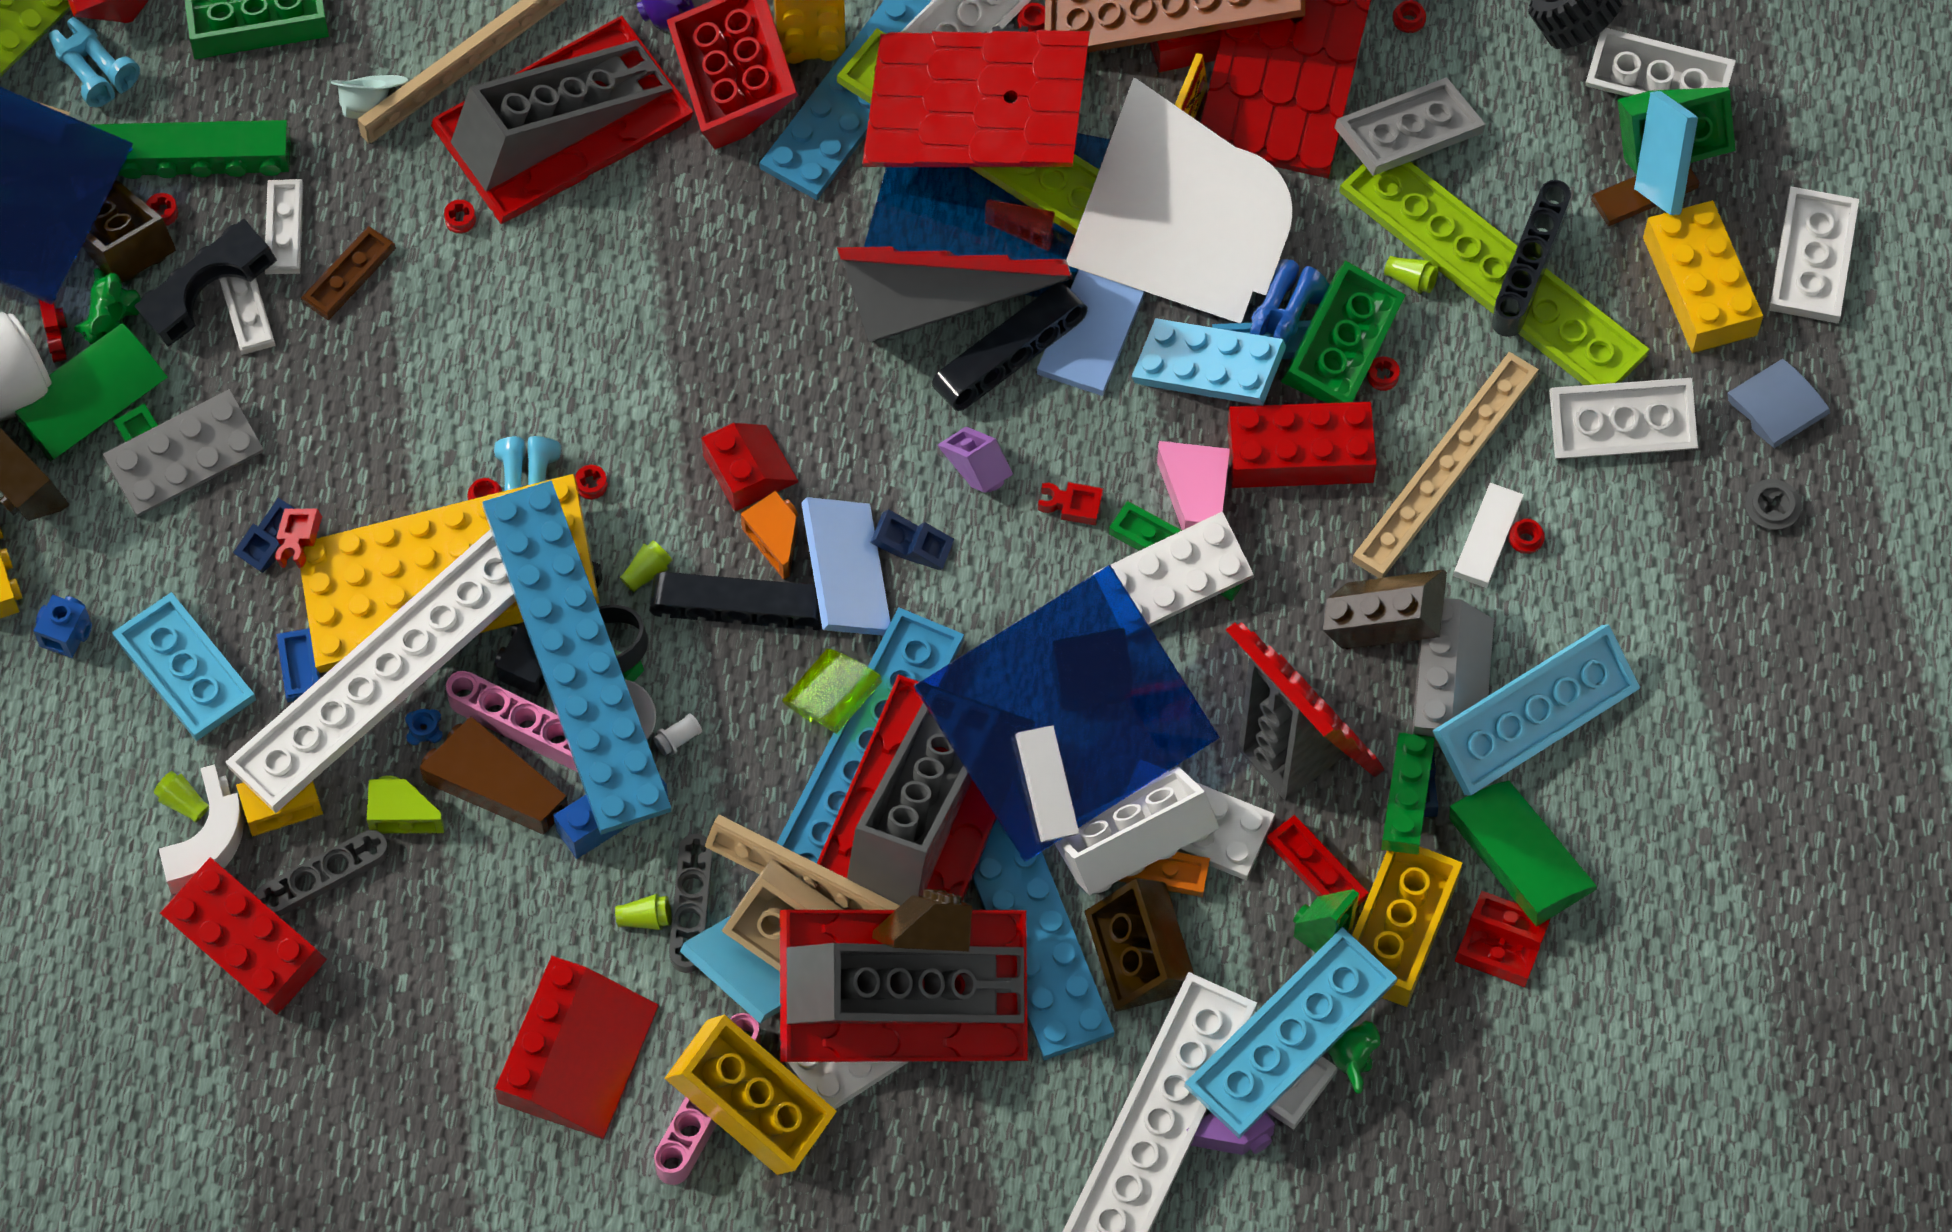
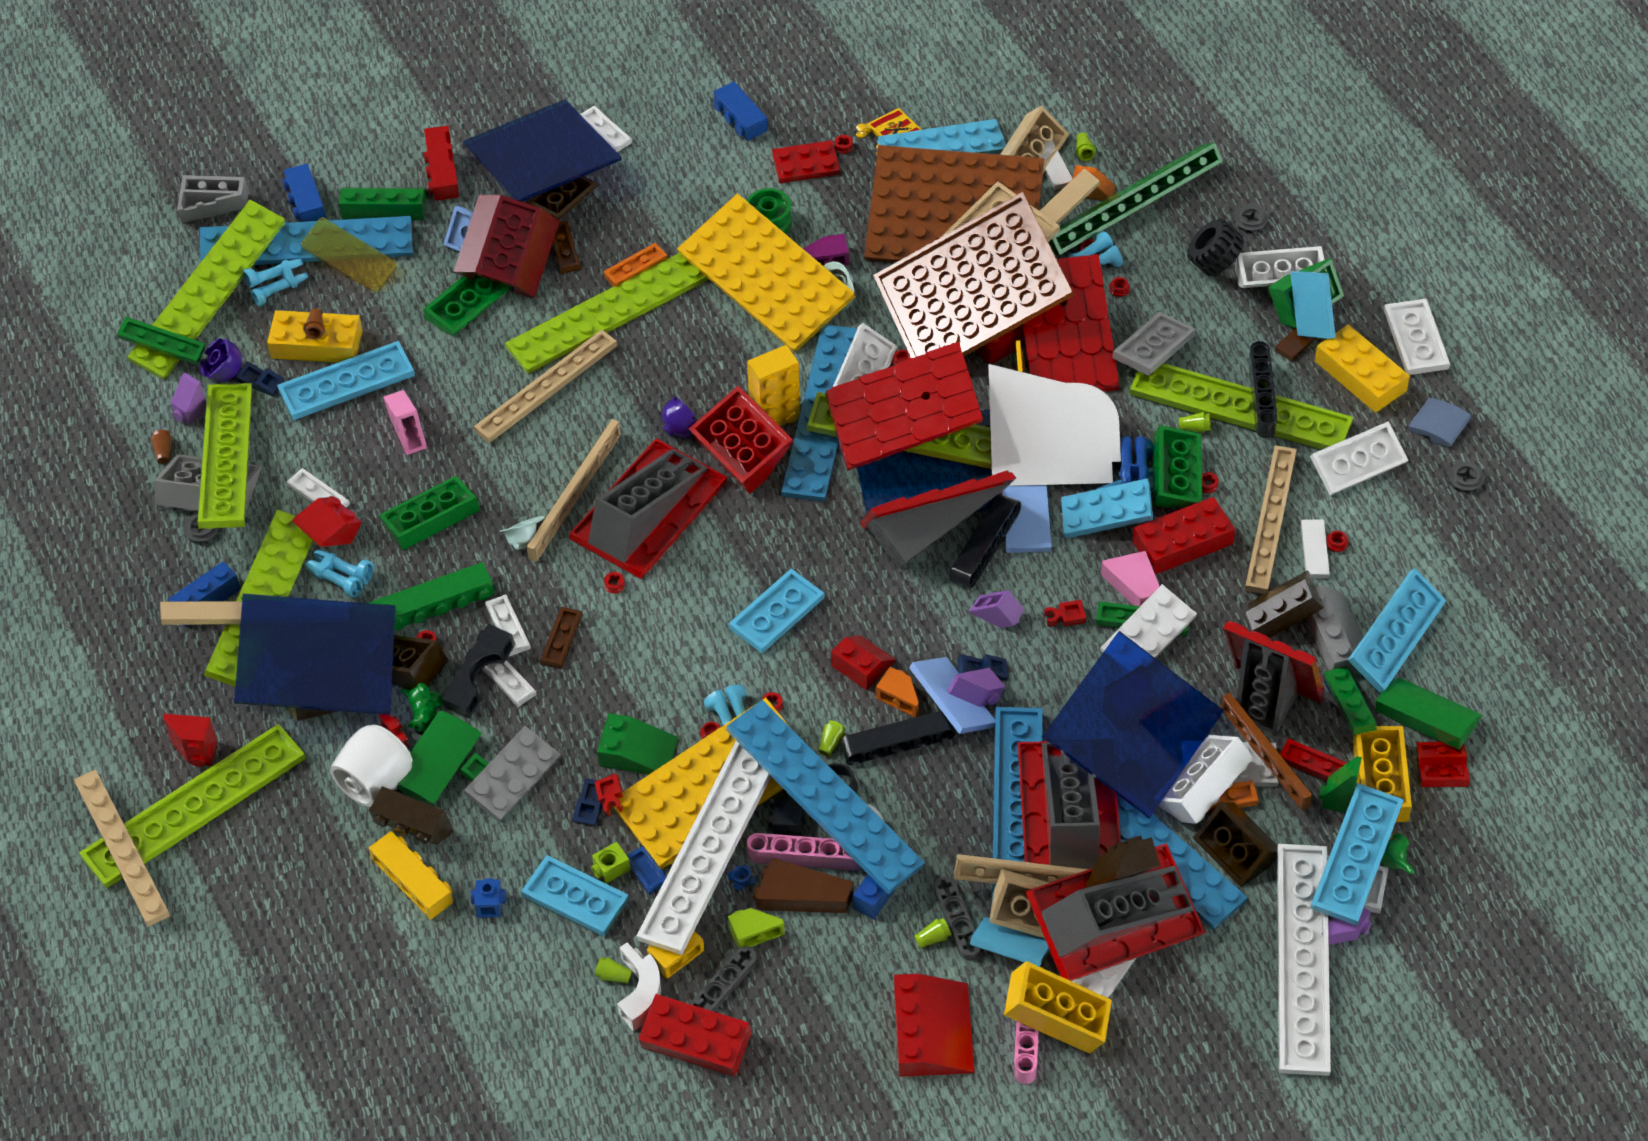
camera: 20 degrees left, 10 degrees down
(258, 624) = (610, 854): none -> lime brick
(368, 474) = (634, 745): none -> green slope
(664, 344) = (776, 611): none -> medium azure plate
(677, 734) = (901, 823): white pin -> none
(832, 690) = (980, 766): clear neon green slope -> none
(884, 568) = (977, 687): none -> medium lavender slope
(1023, 222) = (956, 470): clear red slope -> none
(1047, 783) = (1143, 767): white tile -> none
(1245, 825) = (1266, 752): none -> dark orange tile

